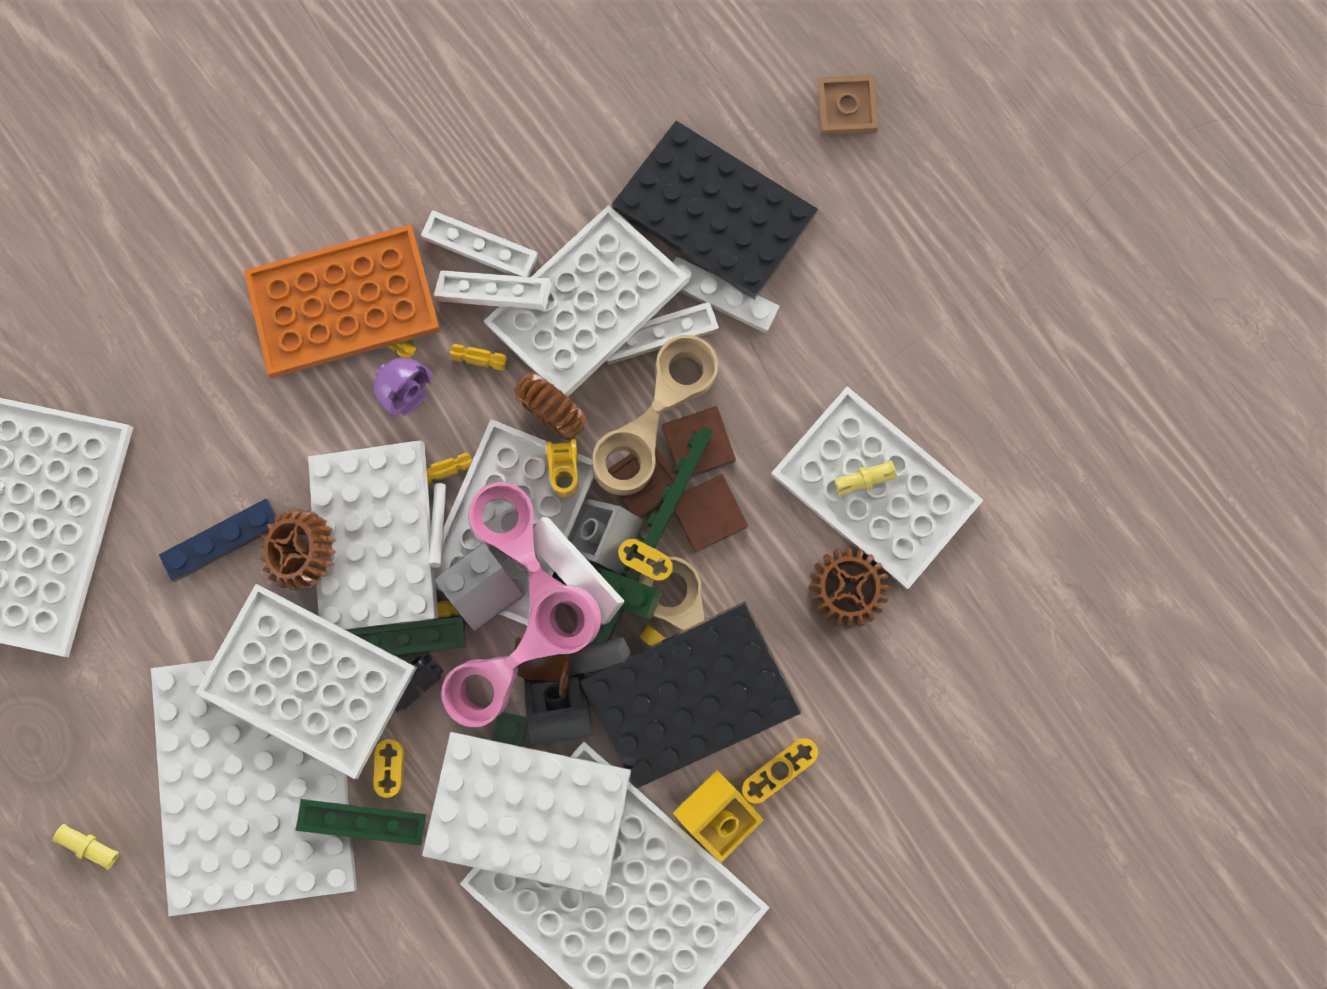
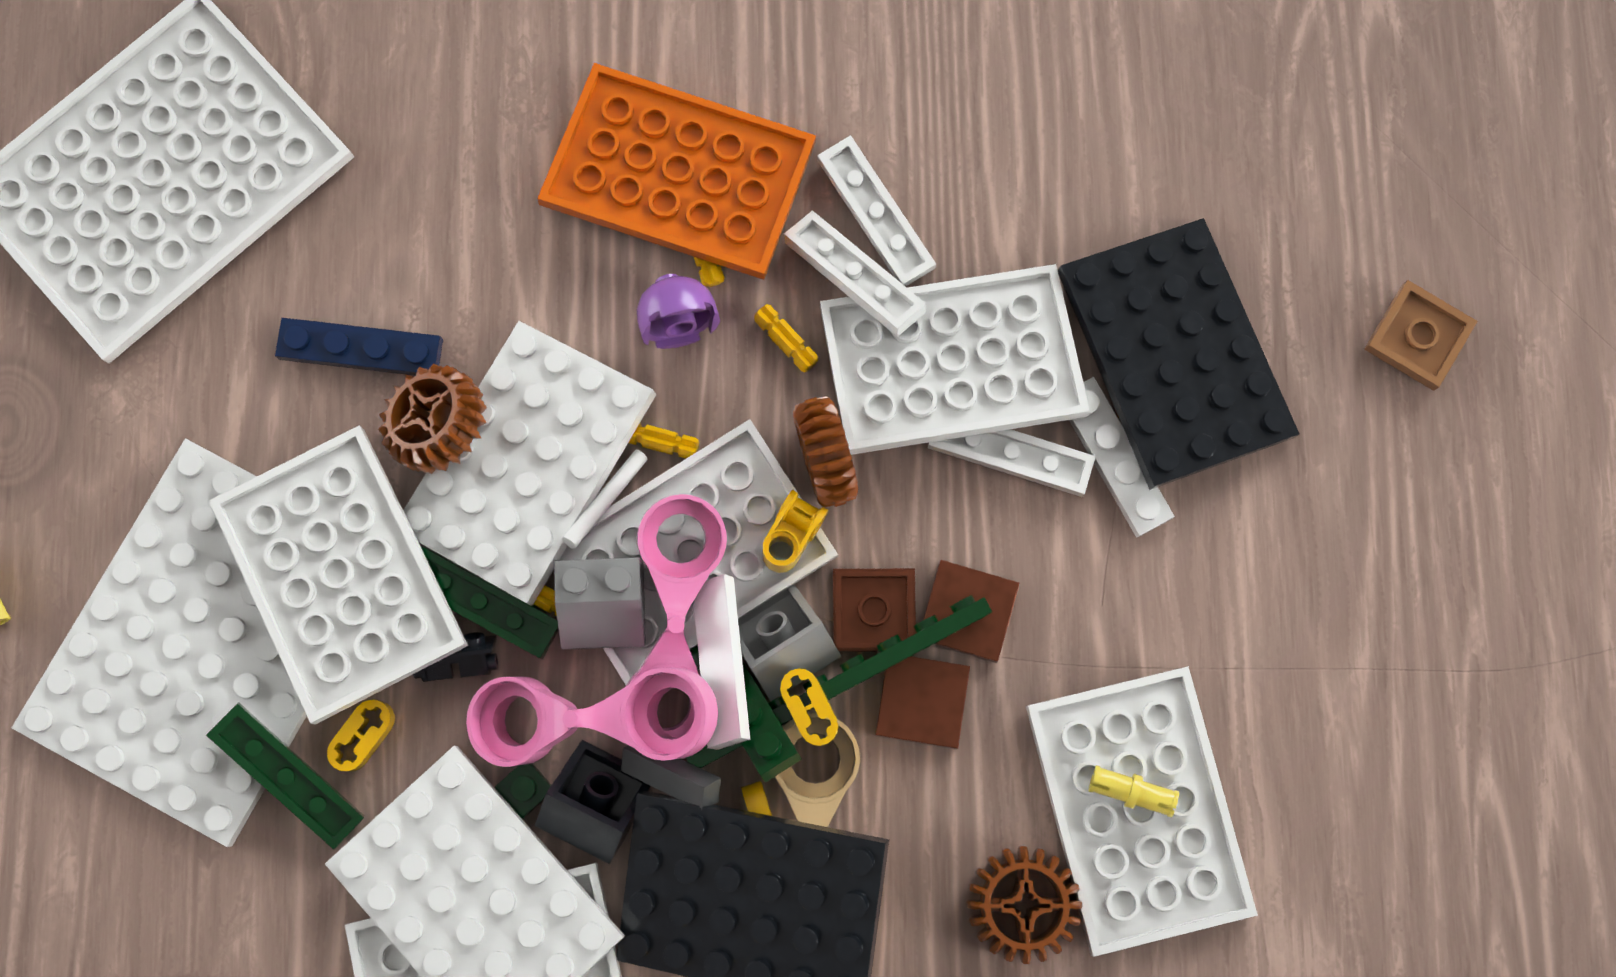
camera: 35 degrees right, 0 degrees up
(547, 668) = (613, 753): reddish brown piece -> none
(640, 434) = (908, 555): tan piece -> none

